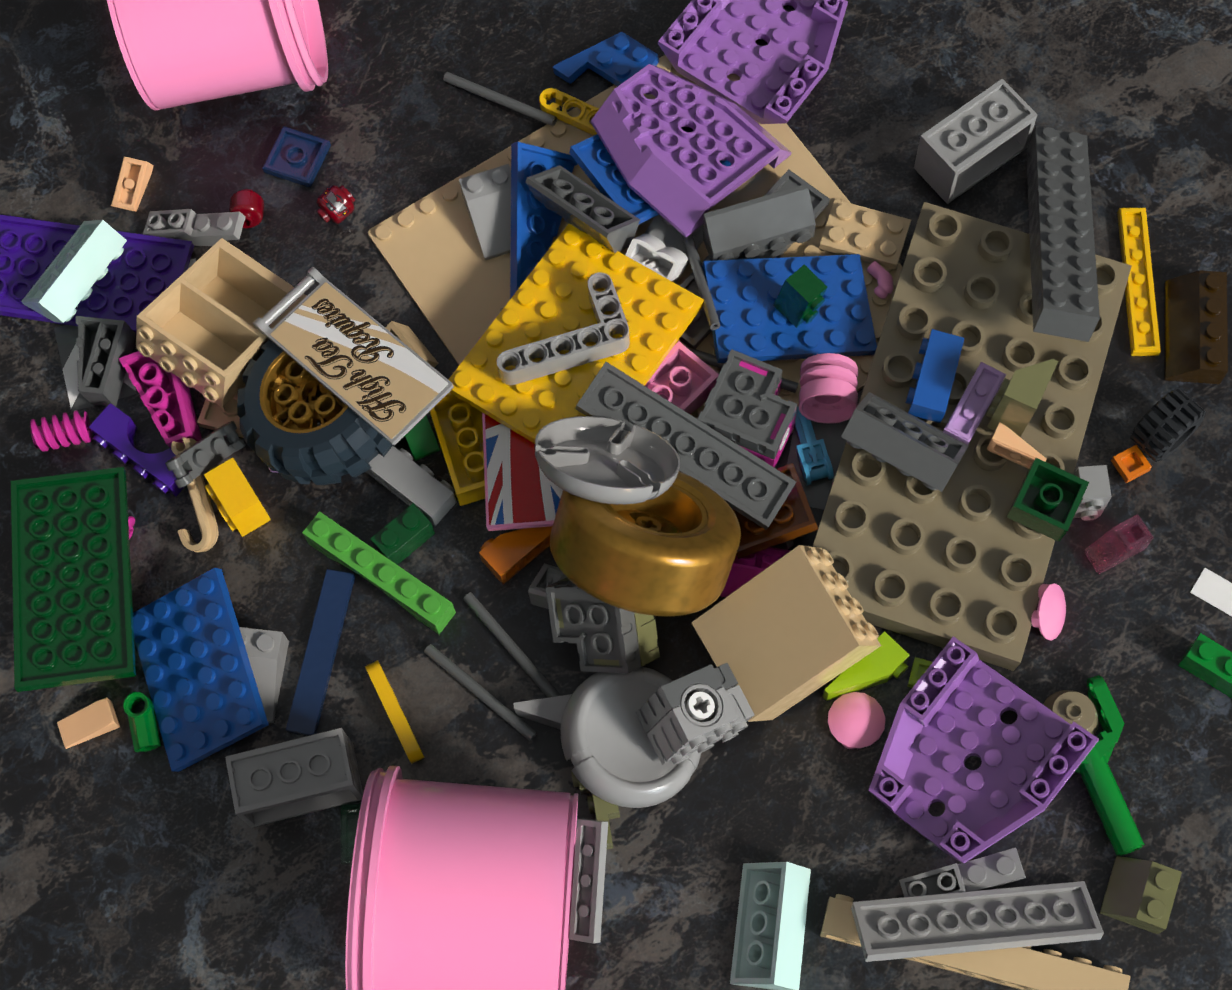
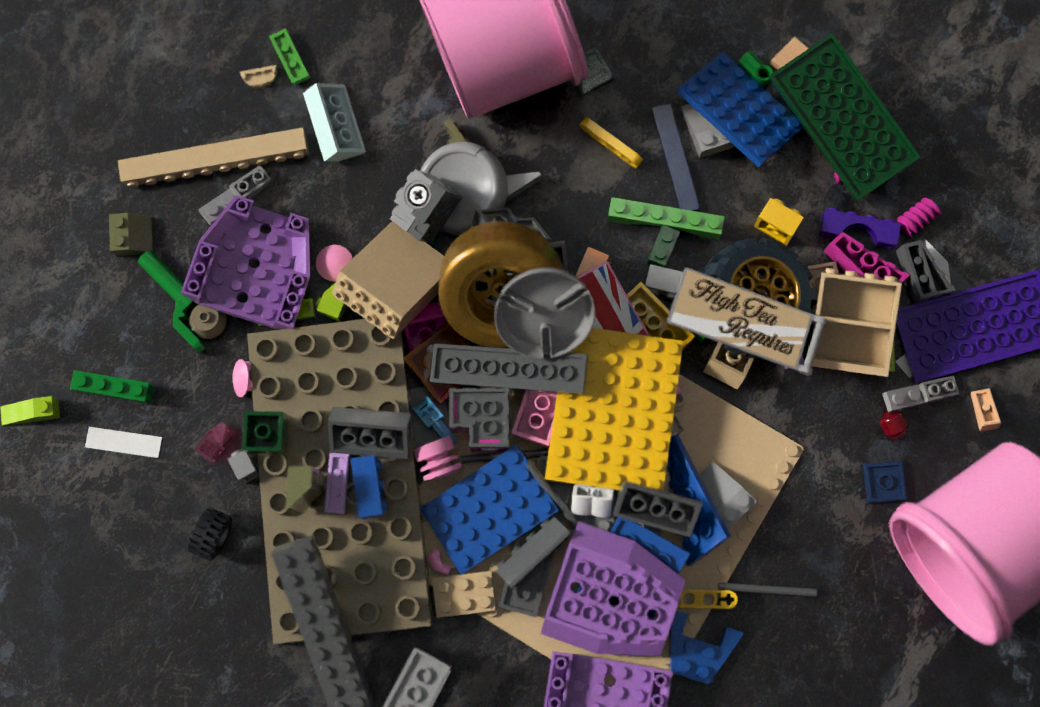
camera: 155 degrees right, 10 degrees up
(75, 271) = (978, 321): light aqua slope -> none
(202, 509) = (810, 217): tan piece -> none
(205, 454) = (813, 233): dark grey plate -> none
(294, 778) = (644, 70): light grey hose -> none
(335, 204) = (835, 453): dark red head -> none
(480, 692) = (568, 179): dark grey piece -> none
(510, 646) = (563, 214): dark grey piece -> none
(573, 341) = (610, 401): light grey beam -> none
(588, 880) = (447, 96): light grey plate -> none
(801, 296) = (479, 505): dark green brick -> none
(975, 921) = (217, 170): light grey plate -> none
(1012, 447) = (299, 459): light nougat slope -> none
(1131, 463) = (226, 504): orange plate -> none
(1140, 284) = (269, 652): yellow tile -> none
(1196, 327) = (216, 623): dark brown slope -> none

